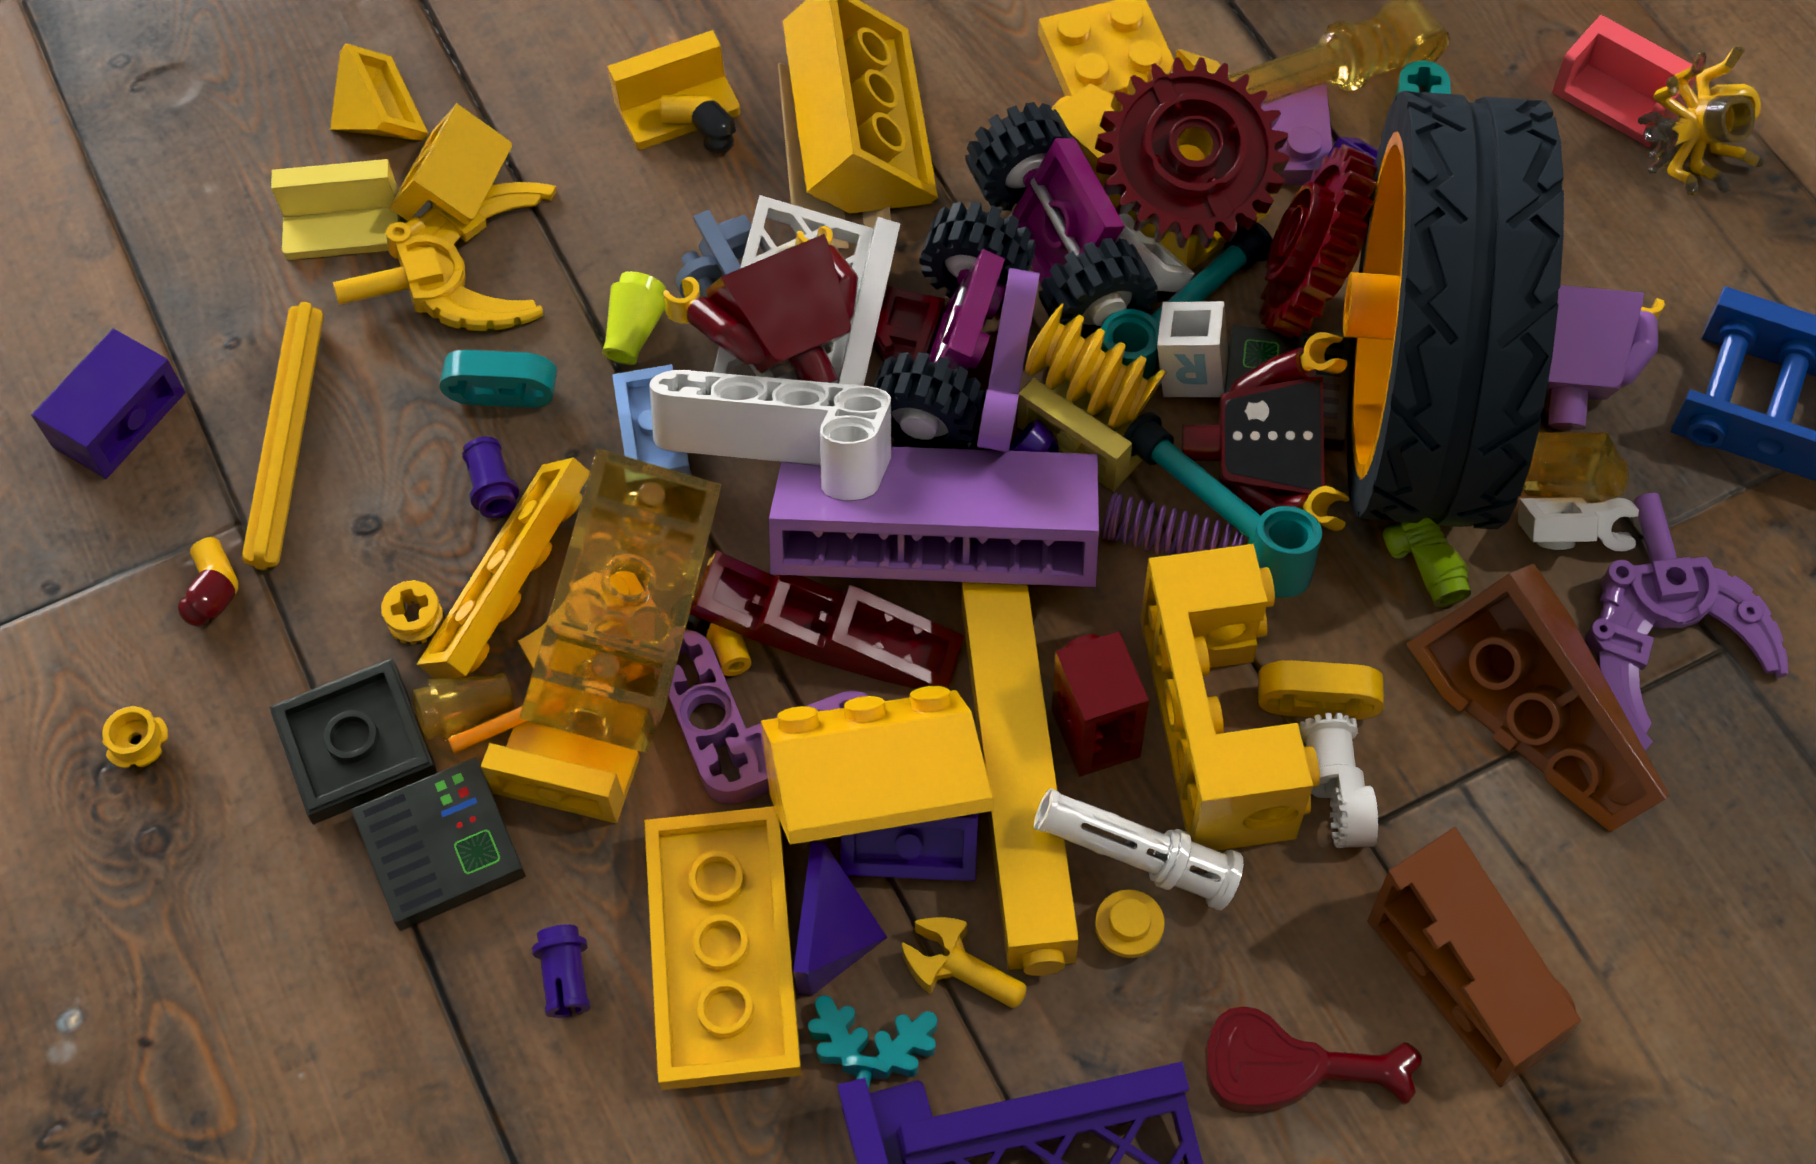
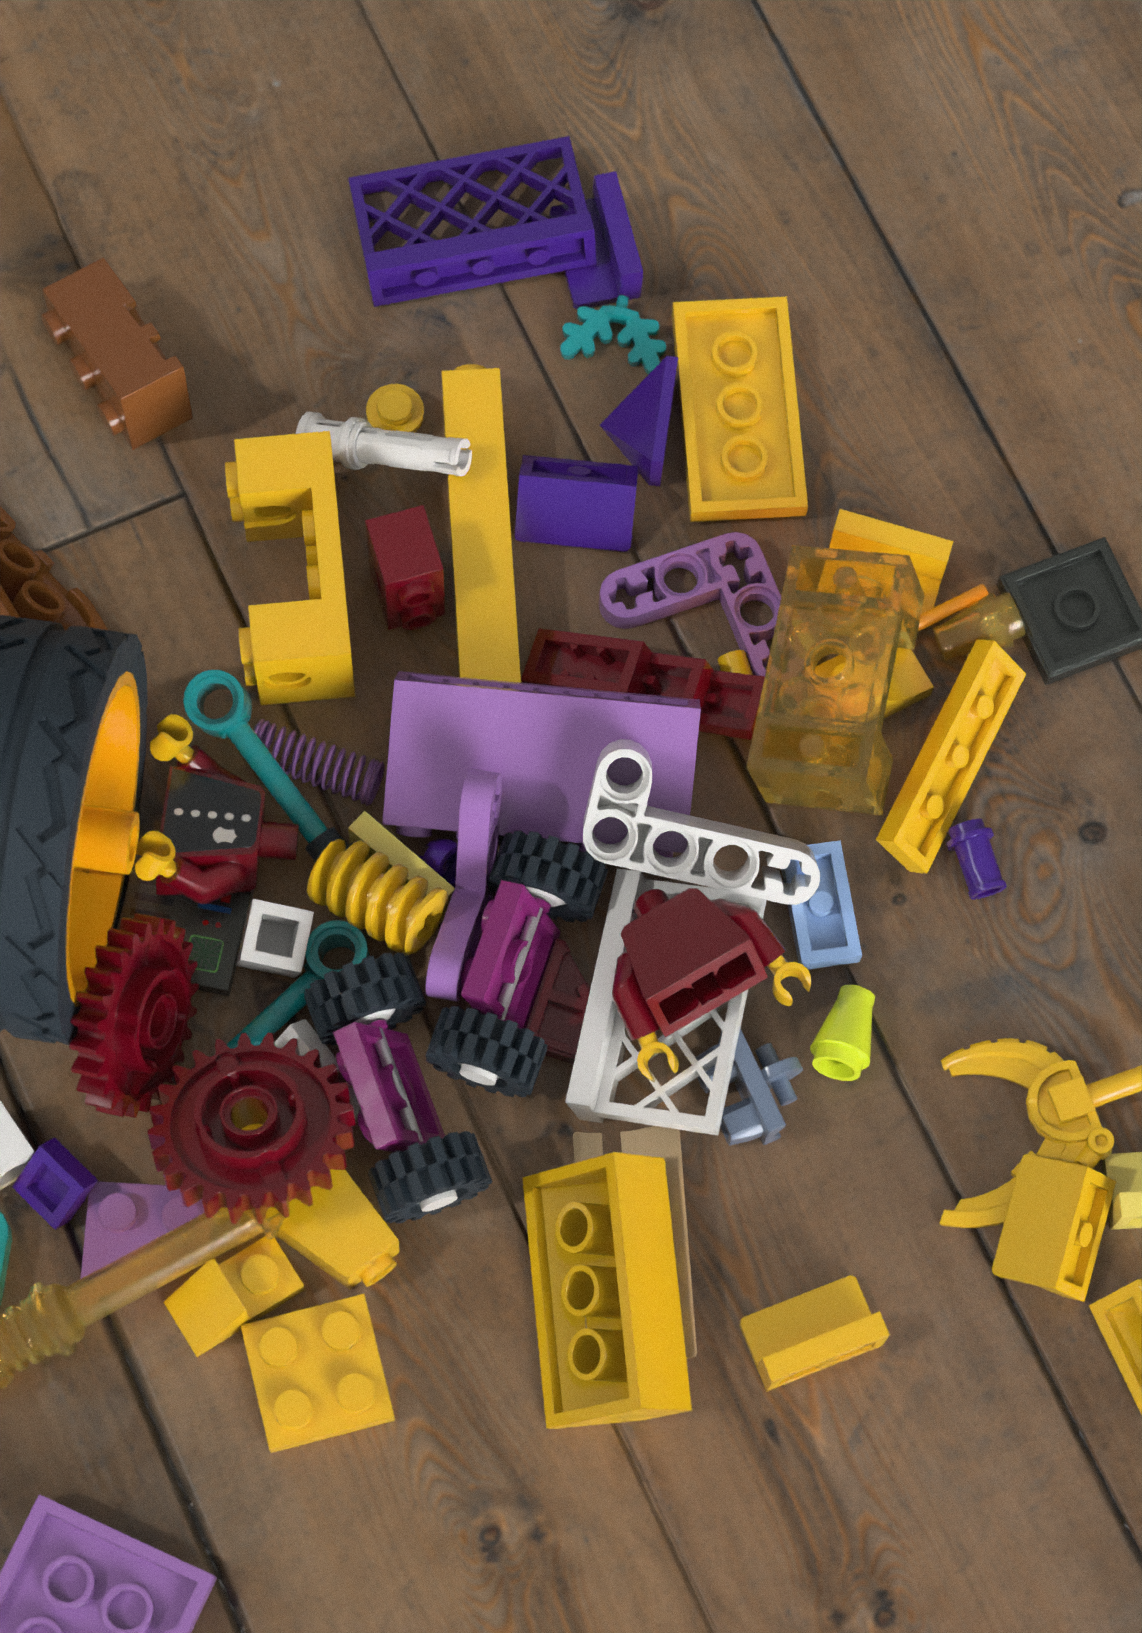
camera: 175 degrees right, 10 degrees up
(429, 615) = (1027, 740): yellow bush -> none
(438, 843) = (989, 511): pearl dark grey tile -> none
(498, 378) = (977, 964): teal beam -> none
(562, 970) = (873, 407): dark purple pin -> none
(705, 114) = (779, 1295): black arm -> none
(874, 764) = (606, 511): yellow slope -> none
(958, 963) = (543, 394): yellow bar -> none
(1264, 1069) = (299, 300): dark red piece -> none
(1320, 688) = (200, 598): yellow beam -> none
(1351, 801) = (201, 520): white connector -> none

